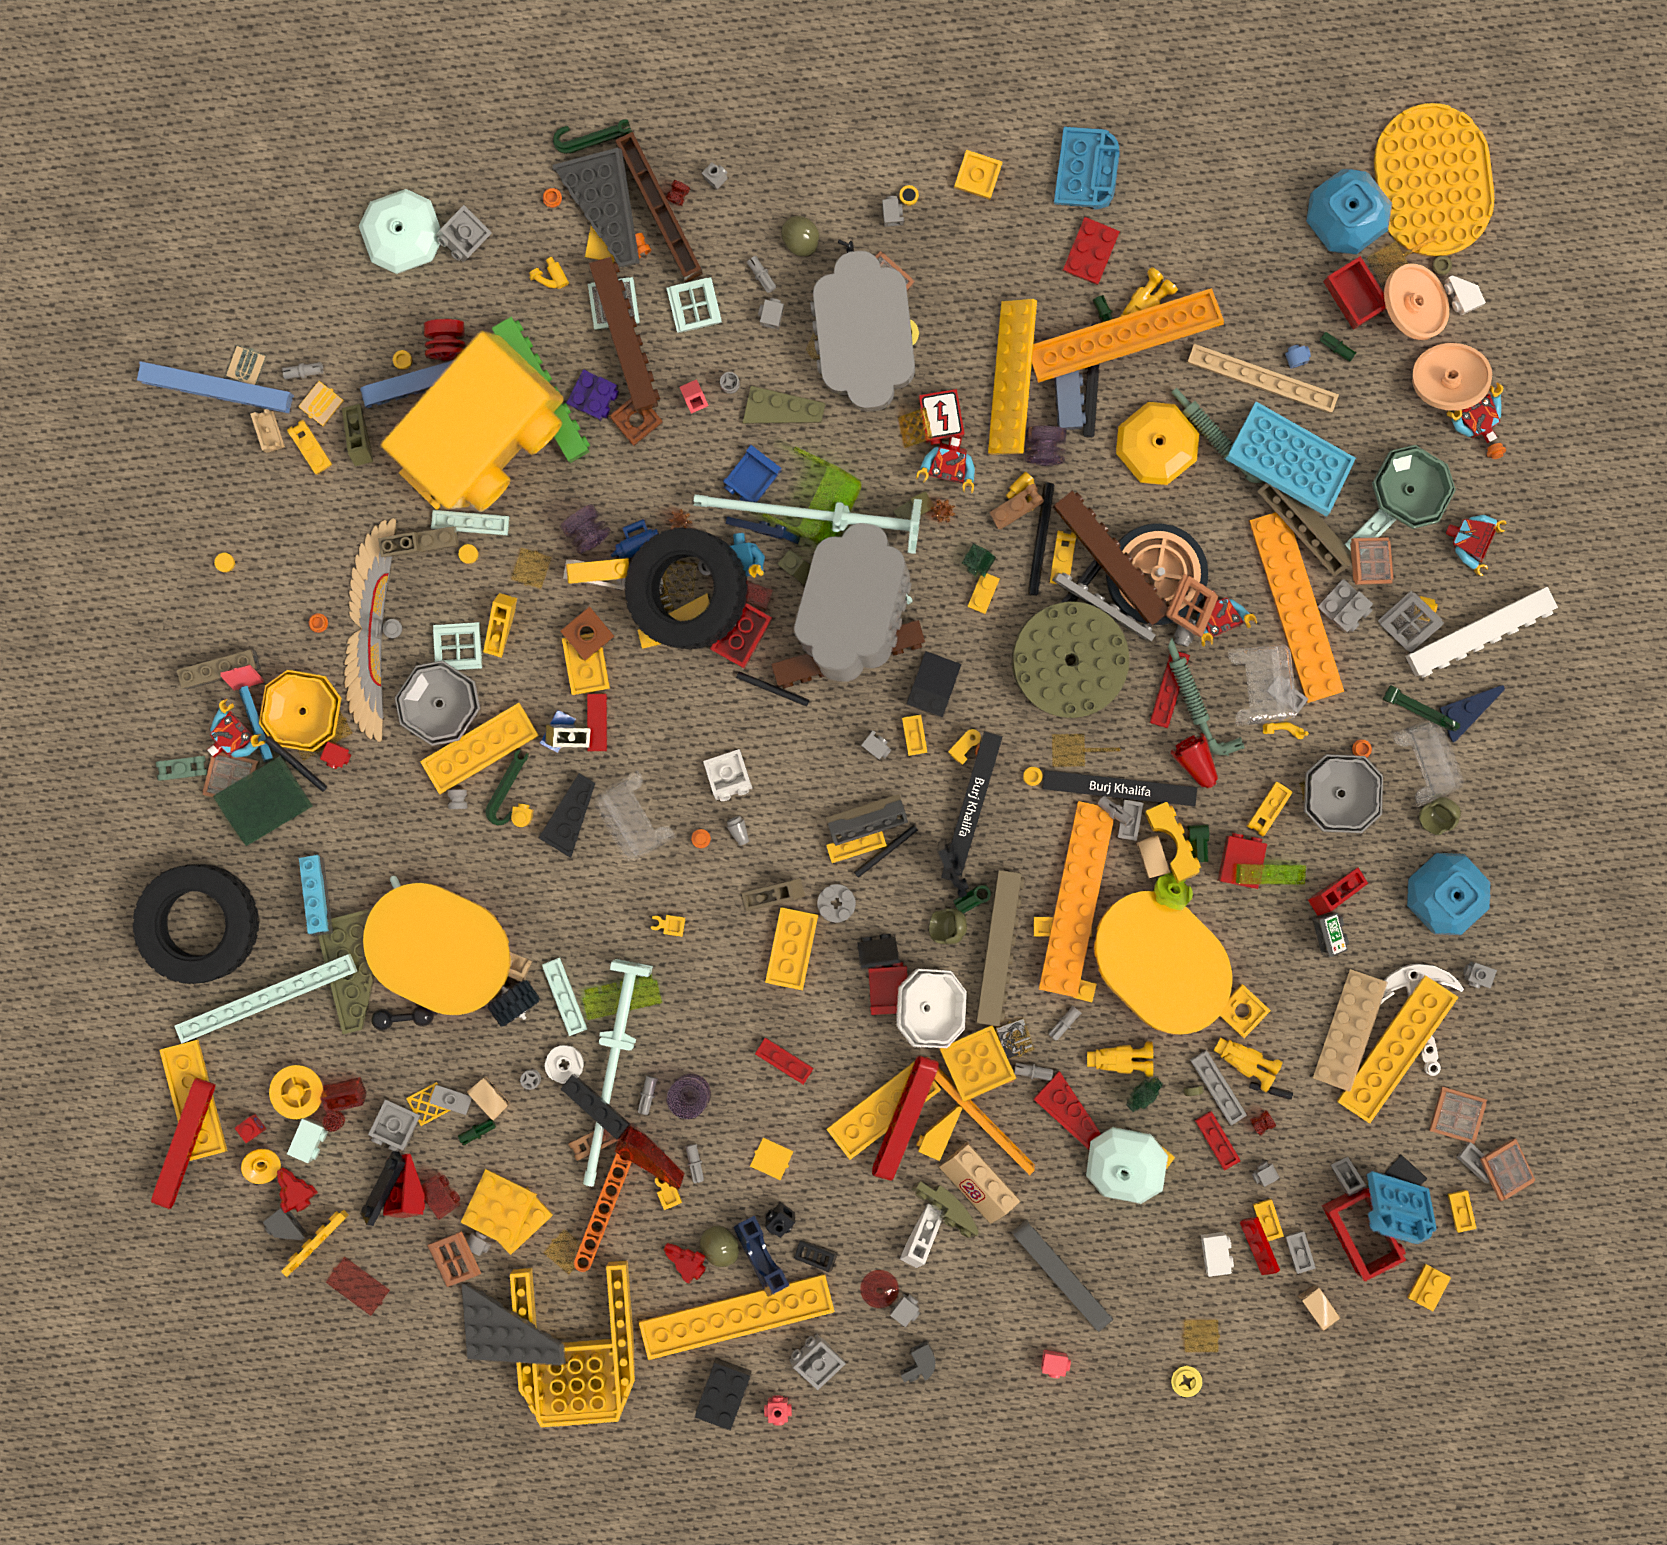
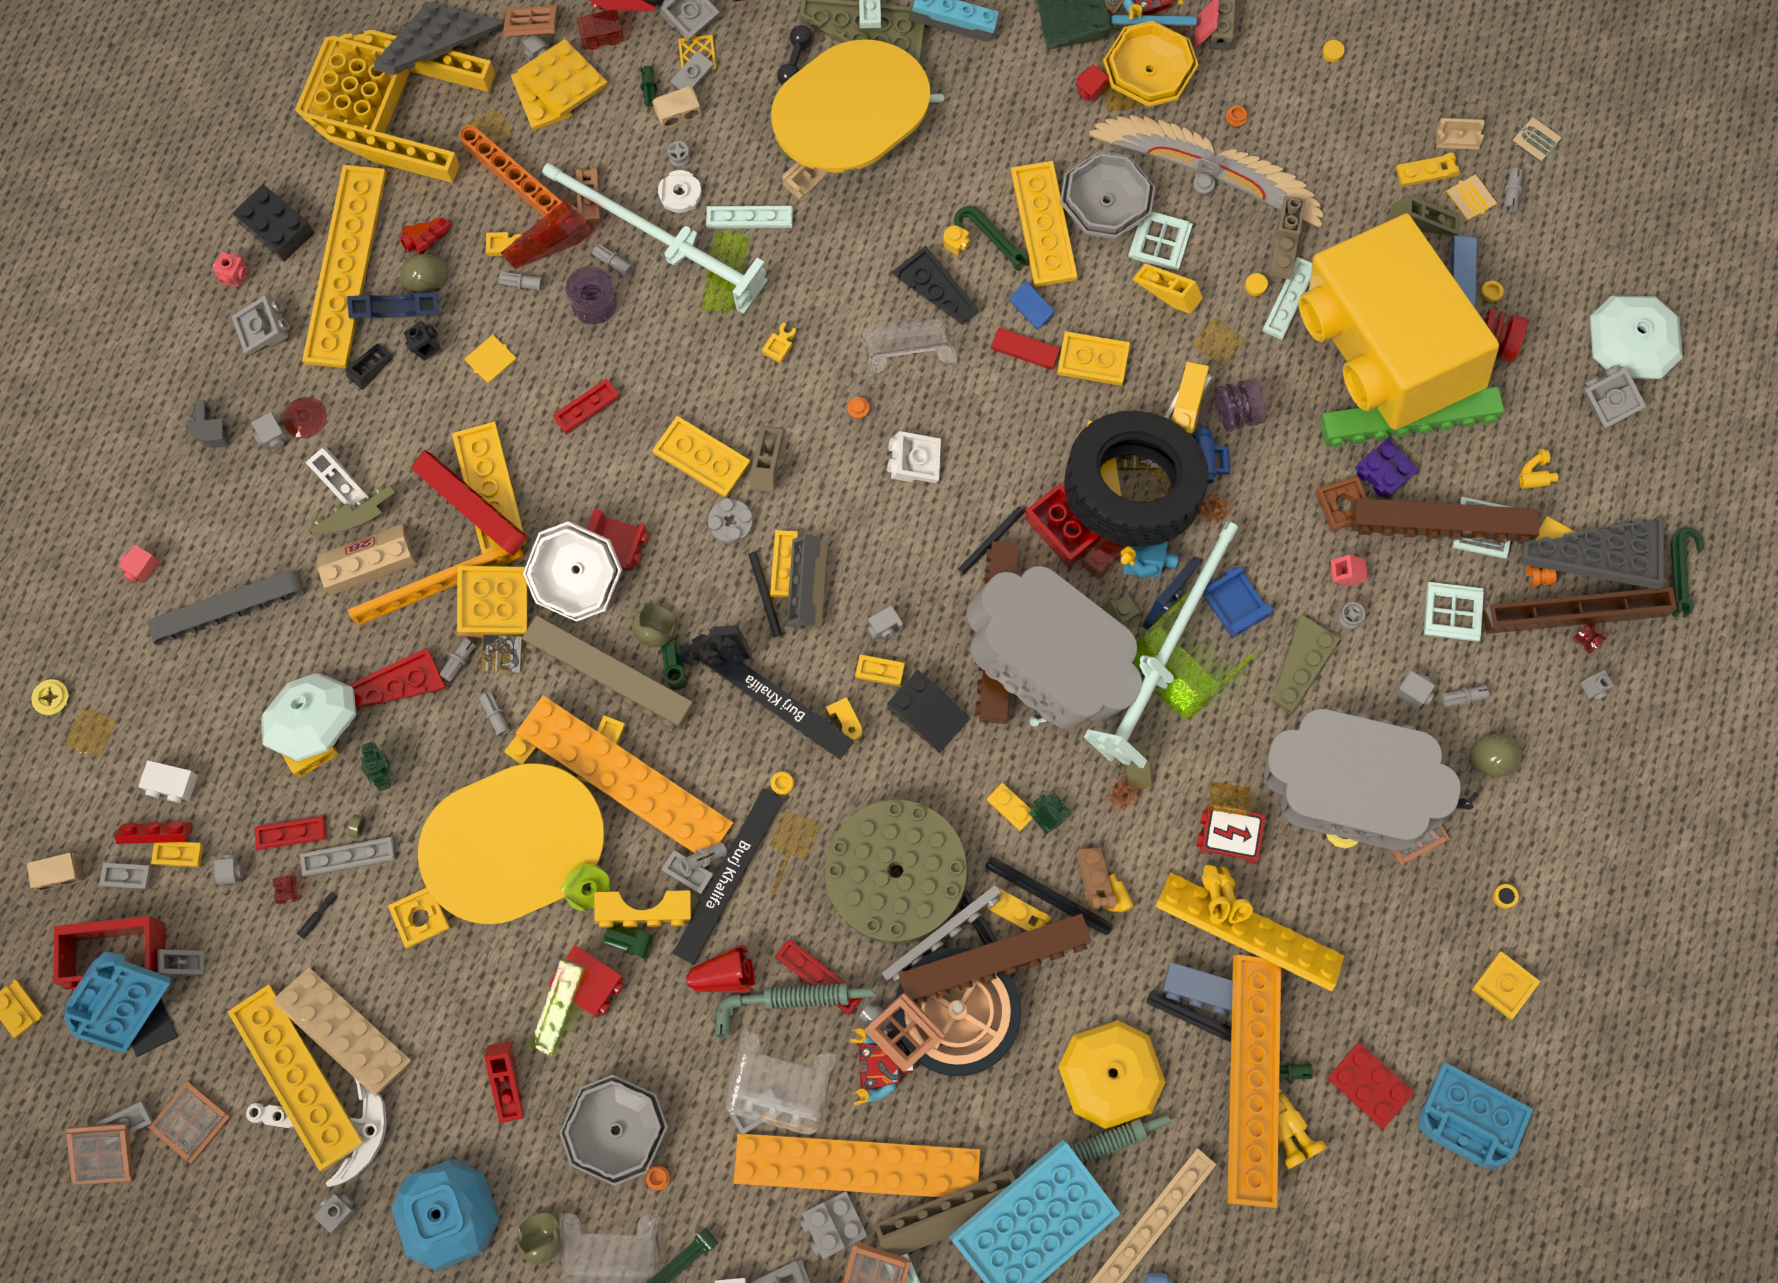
camera: 120 degrees right, 15 degrees down
(215, 387) = (1523, 100): medium blue tile -> none
(295, 763) = (1096, 42): black bar -> none
(457, 798) = (998, 183): light grey wheel -> none
(513, 1003) = (763, 159): black wheel -> none
(552, 198) = (1625, 504): orange plate -> none
(567, 735) = (1022, 309): brick -> none
(595, 1106) = (621, 200): black plate -> none
(601, 635) = (1119, 381): dark orange piece -> none
(738, 830) = (851, 448): light grey cone -> none
(878, 951) = (657, 538): black slope -> none
(892, 212) = (1492, 868): light grey brick -> none
(938, 1135) = (433, 530): yellow slope -> none
(949, 463) = (1173, 821): torso -> none
(982, 413) = (1220, 907): none -> yellow piece
(1045, 445) = (1155, 937): wheel -> none
(1120, 1059) = (426, 758): yellow piece -> none
(1153, 857) = (635, 879): tan piece -> none
(1246, 1062) = (362, 897): yellow piece -> none
(1270, 808) = (634, 1039): yellow plate -> none
(1296, 731) = (710, 1107): yellow piece -> none
(1330, 934) = (458, 1051): slope -> none
(1461, 1211) = (80, 1081): yellow plate -> none

